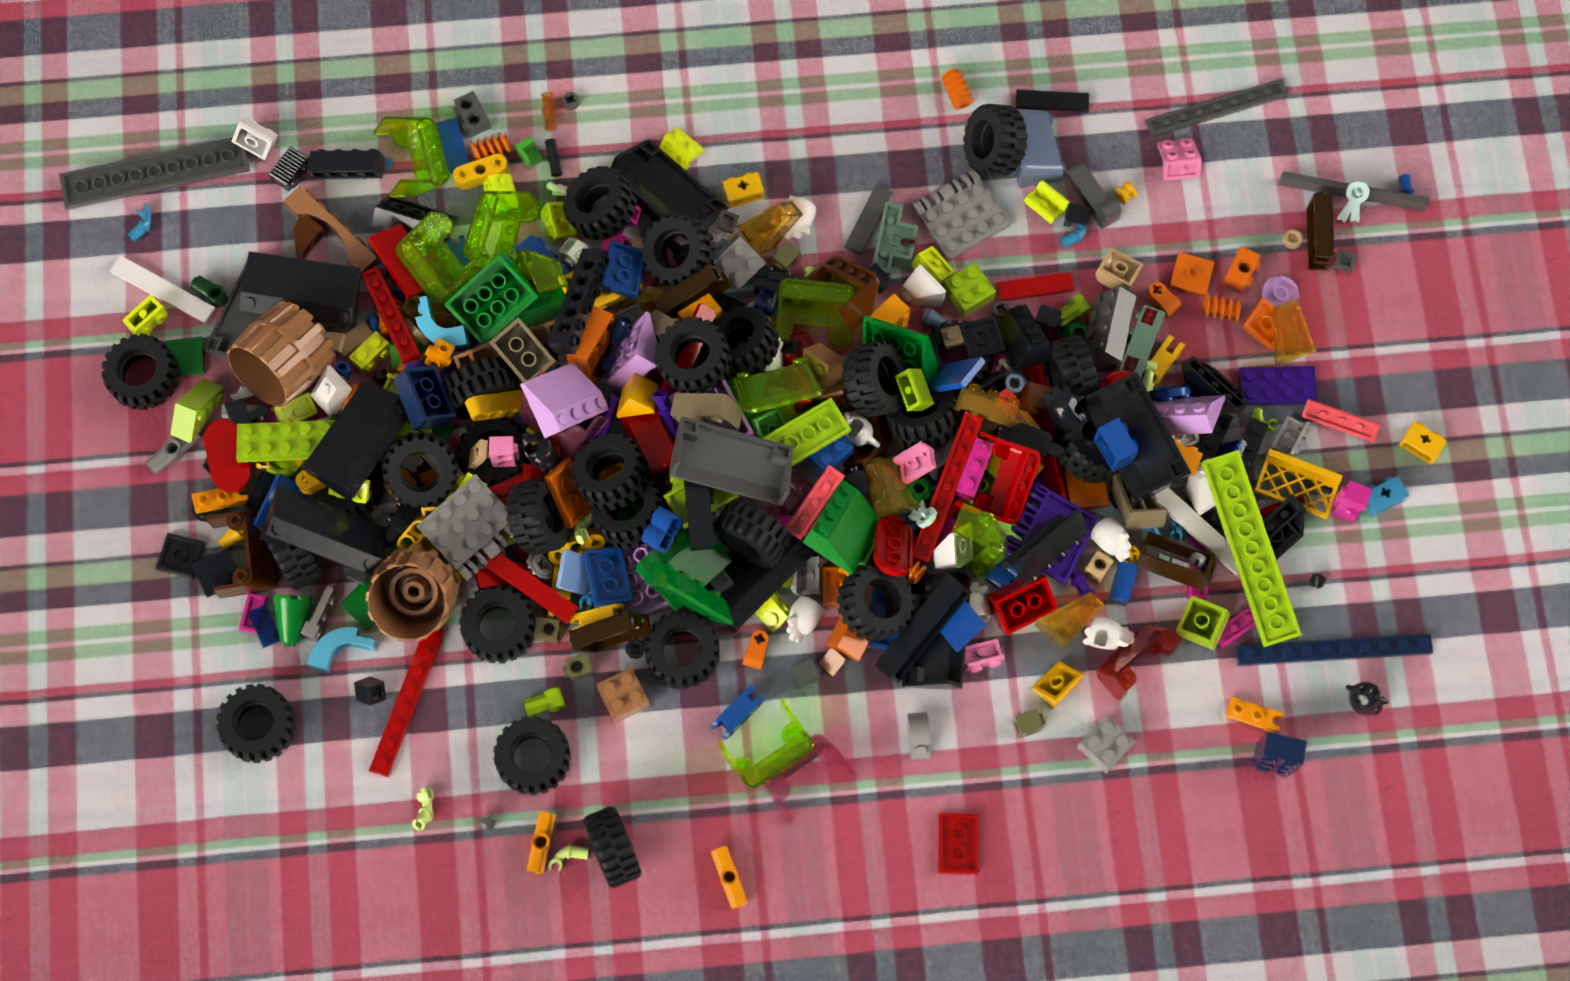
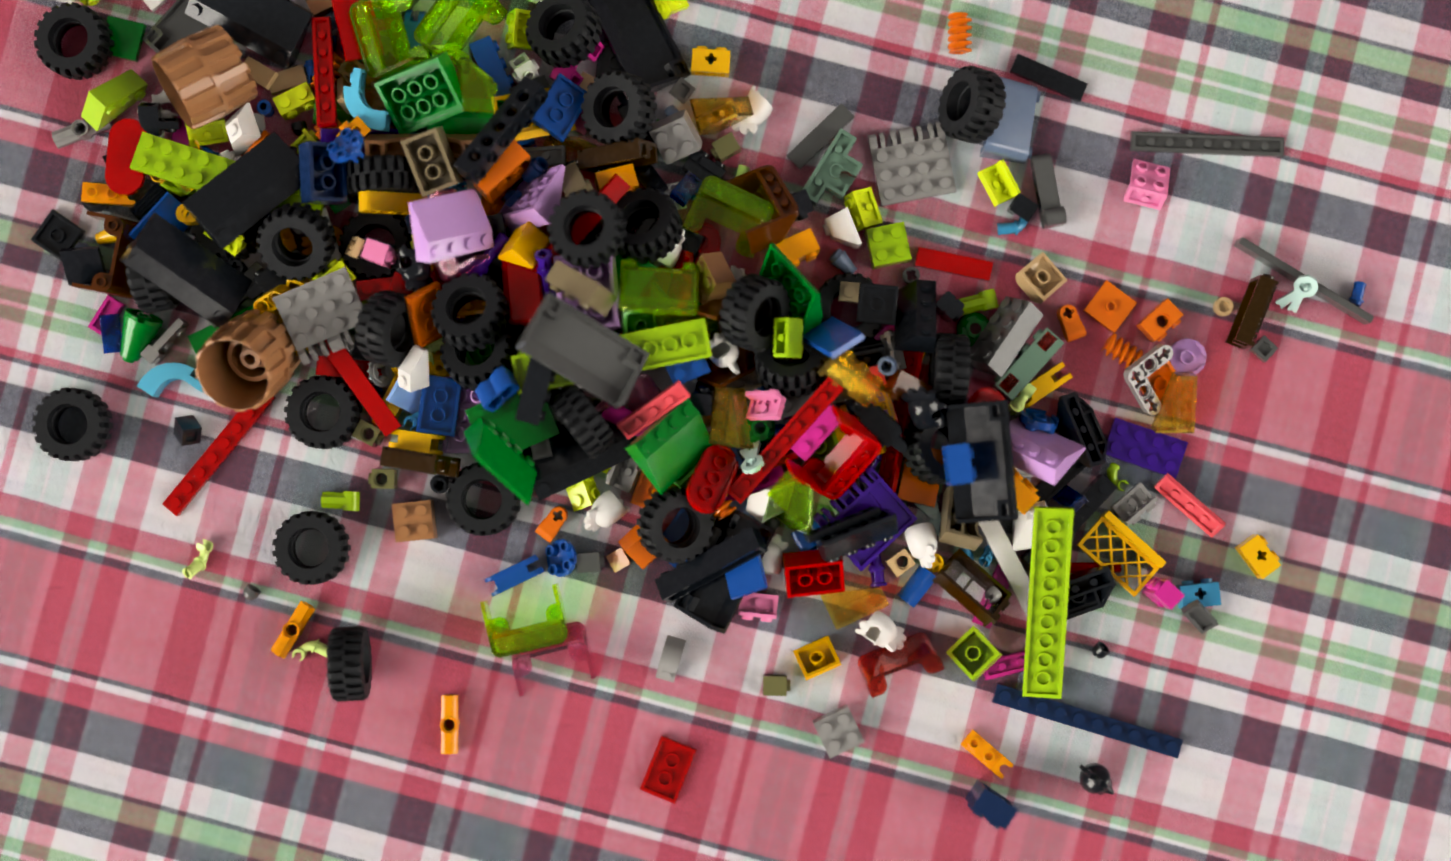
camera: 25 degrees right, 15 degrees up
(440, 362) = (346, 146): none -> blue plate
(575, 545) = (414, 370): none -> white slope
(777, 678) = (561, 557): none -> blue dish
(1125, 193) = (1080, 201): yellow wheel -> none
(1246, 318) = (1142, 374): none -> light grey beam
(1394, 513) = (1199, 616): none -> dark grey tile

